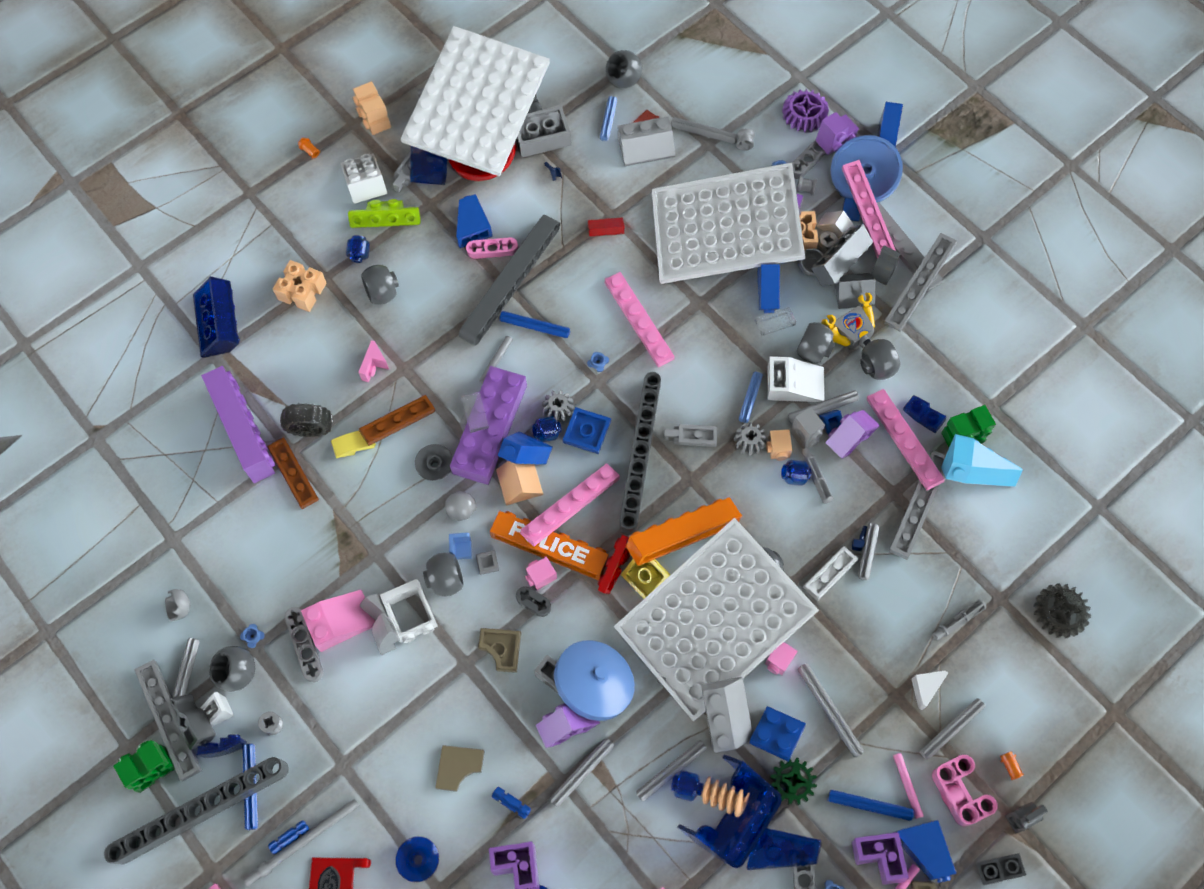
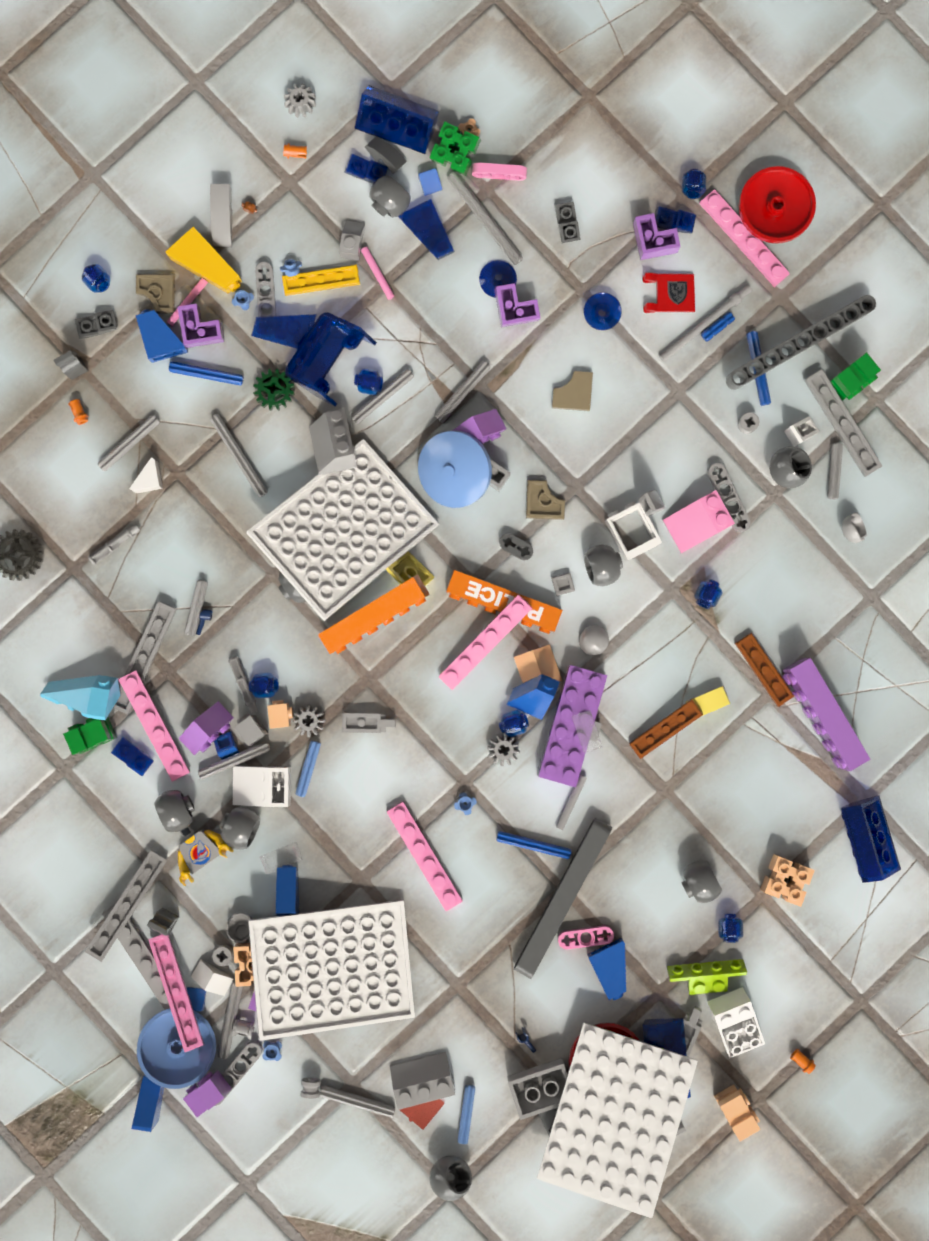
camera: 175 degrees right, 20 degrees up
(192, 722) = (820, 420): dark grey piece -> none
(226, 746) = (784, 401): clear blue slope -> none
(246, 635) = (783, 503): medium blue plate -> none
(306, 420) = (757, 720): clear smoke gear -> none
(338, 544) = (708, 594): none -> clear blue head
(372, 360) = (698, 798): bright pink slope -> none
(373, 606) = (666, 533): light grey slope -> none
(433, 454) = (631, 676): dark grey dish -> none
(460, 545) = (590, 596): medium blue panel -> none
(511, 802) = (524, 363): blue axle -> none
(540, 573) = (511, 573): bright pink brick -> none
(586, 430) = (473, 724): blue plate -> none
(606, 227) = (463, 969): red slope -> none
(621, 555) = (440, 583): red wing -> none
(640, 460) = (420, 712): dark grey beam -> none
(720, 795) = (335, 371): light nougat piece -> none
(777, 733) = (287, 430): blue plate -> none
(780, 659) = (280, 495): bright pink brick -> none
(805, 110) = (239, 1147): medium lavender gear -> none
(819, 190) = (231, 1015): none -> light grey axle
(830, 573) = (233, 586): white tile -> none
(842, 255) = (207, 934): brick -> none
(853, 286) = (196, 899): dark grey slope -> none
(908, 785) = (171, 391): bright pink bar -> none
(956, 795) = (130, 384): bright pink beam -> none

